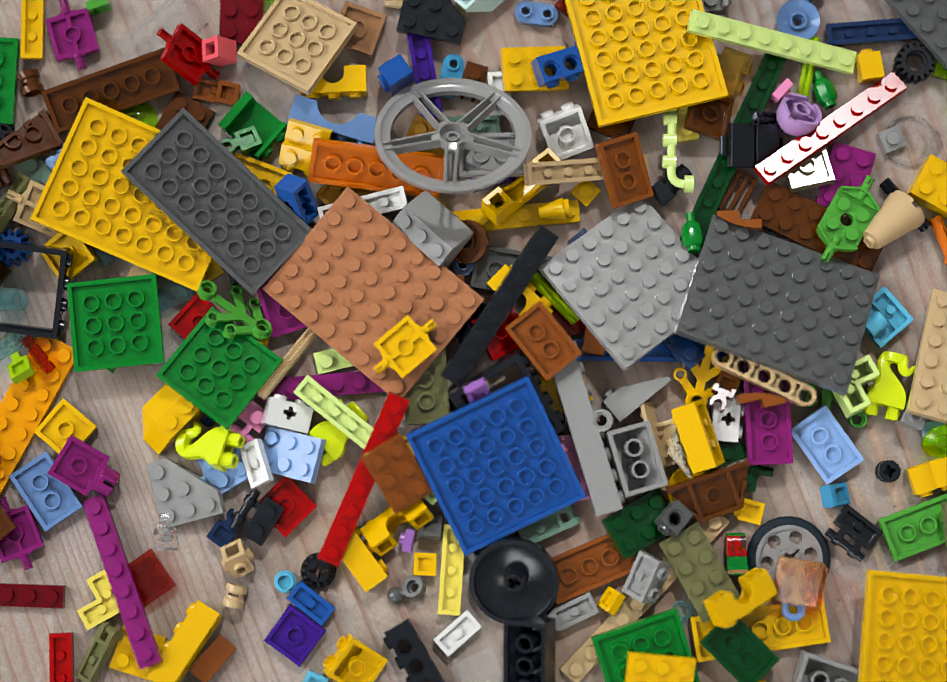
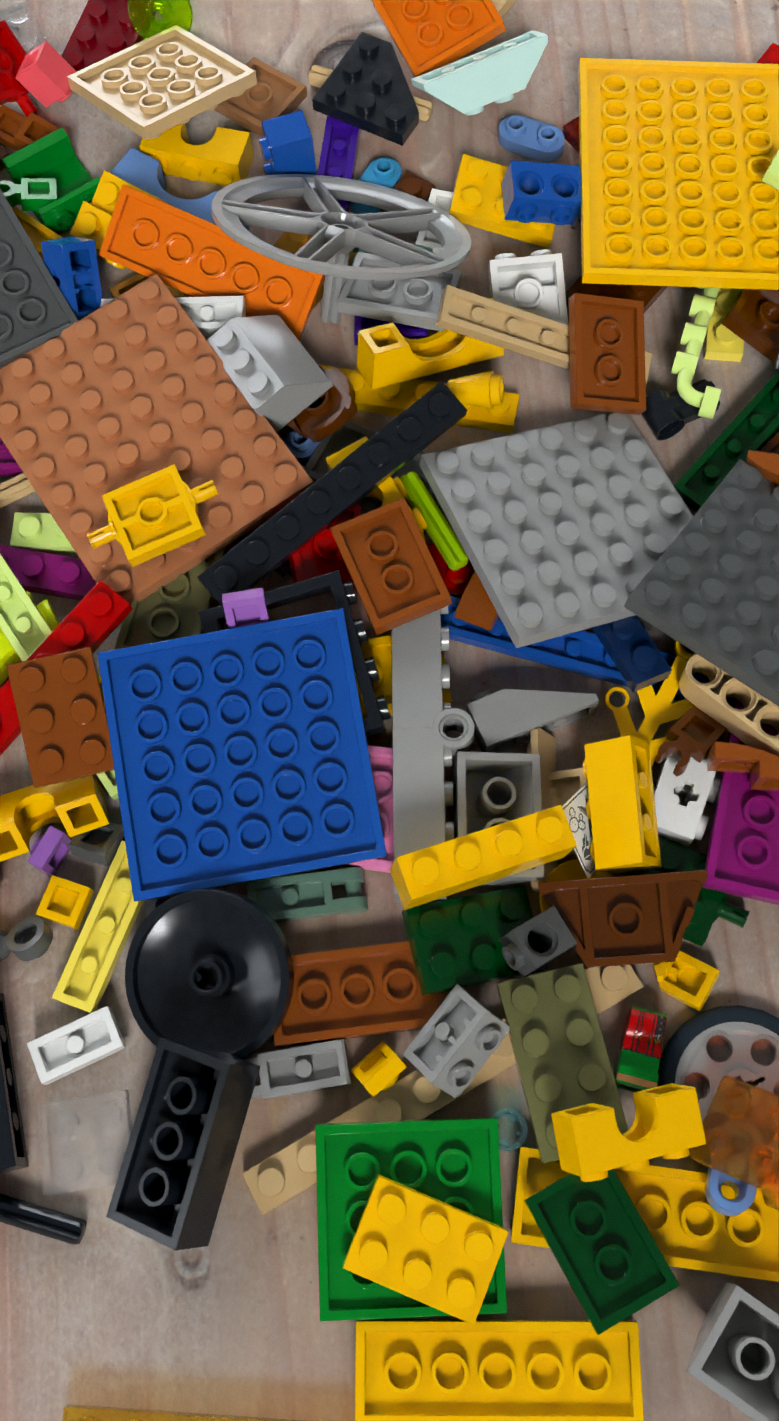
camera: 20 degrees right, 15 degrees down
(585, 192) = (535, 389): yellow plate -> none
(637, 487) = (482, 857): none -> yellow brick
(692, 234) = (696, 479): green plant -> none

